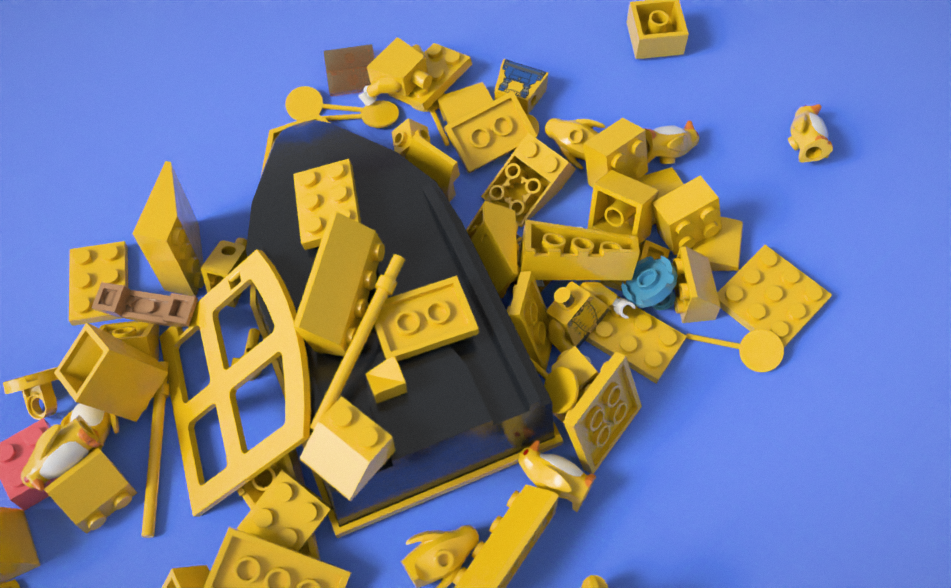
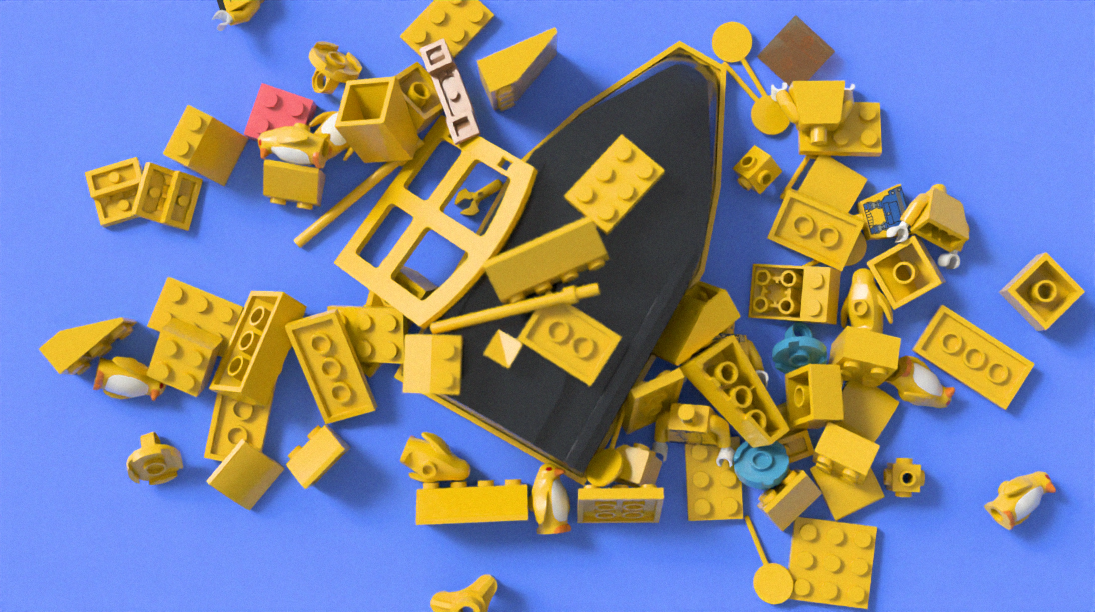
camera: 50 degrees right, 25 degrees up
(222, 262) = (519, 125): yellow torso -> none
(434, 164) = (740, 211): yellow slope -> none
(553, 52) = (938, 220): none -> yellow torso
(572, 94) = (906, 272): none -> yellow slope
(574, 201) = (798, 351): none -> dark azure tile
(674, 99) = (973, 357): none -> yellow plate
(736, 197) = (893, 477): none -> yellow brick

